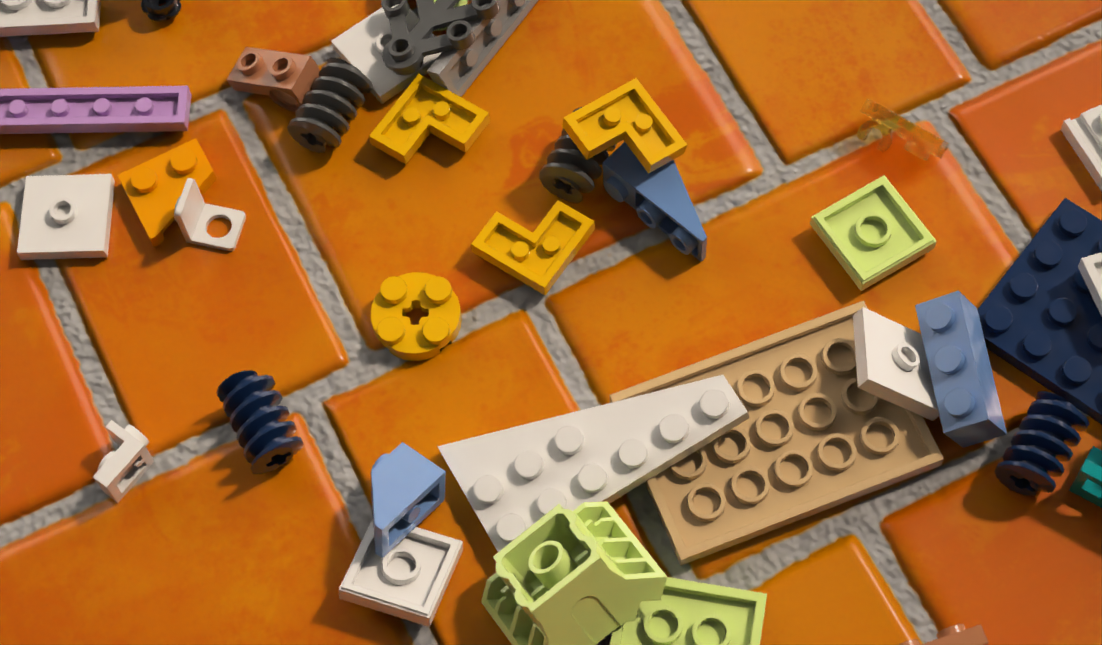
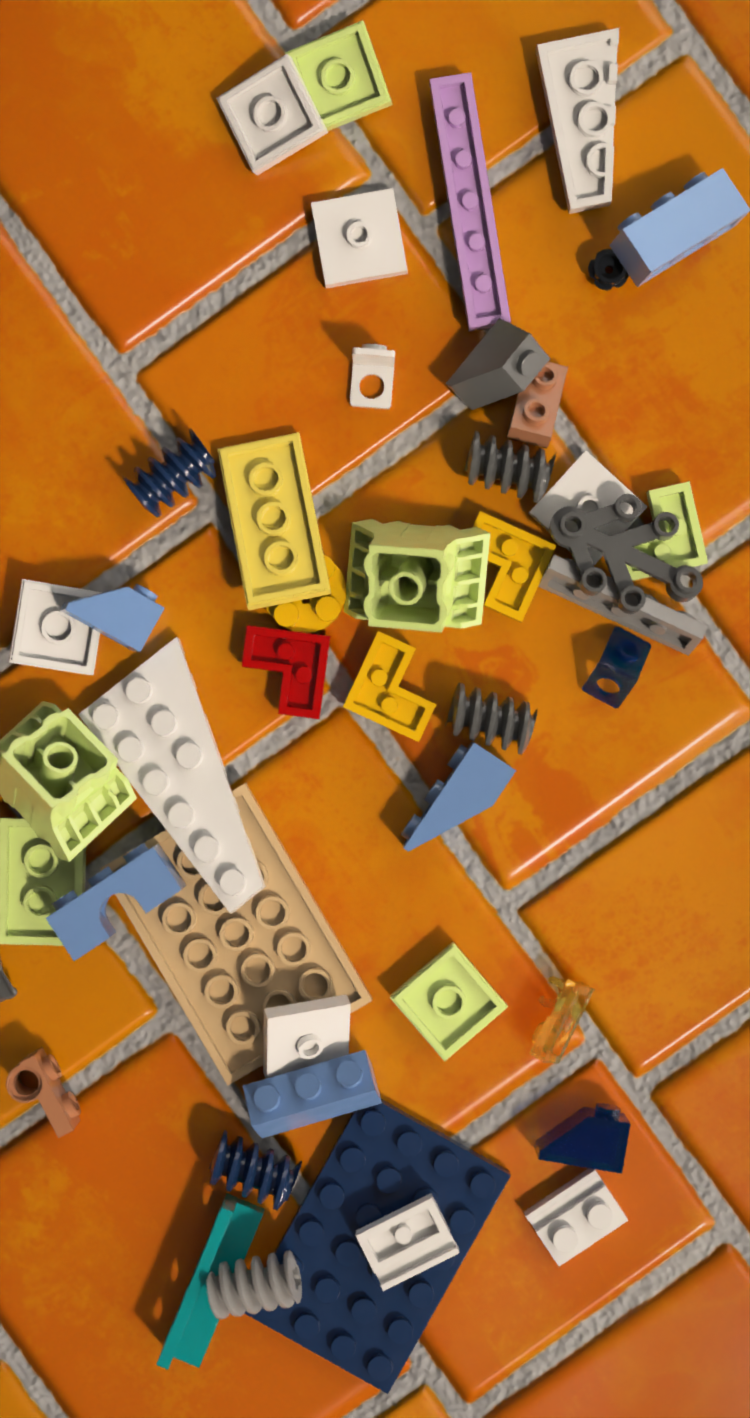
camera: 75 degrees right, 25 degrees up
(126, 465) = (112, 359): white bracket -> none
(160, 182) = (404, 324): light orange wing -> none
(228, 97) = (498, 366): none -> dark grey slope
(336, 327) = (274, 521): none -> light yellow tile
(420, 200) = (416, 575): none -> yellowish green slope
(492, 324) = (299, 657): none -> red plate
(547, 33) = (620, 662): none -> bracket
(627, 116) = (515, 766): yellow plate -> none
(733, 573) = (83, 920): none -> medium blue arch
(1029, 119) = (588, 1139): none -> clear blue slope

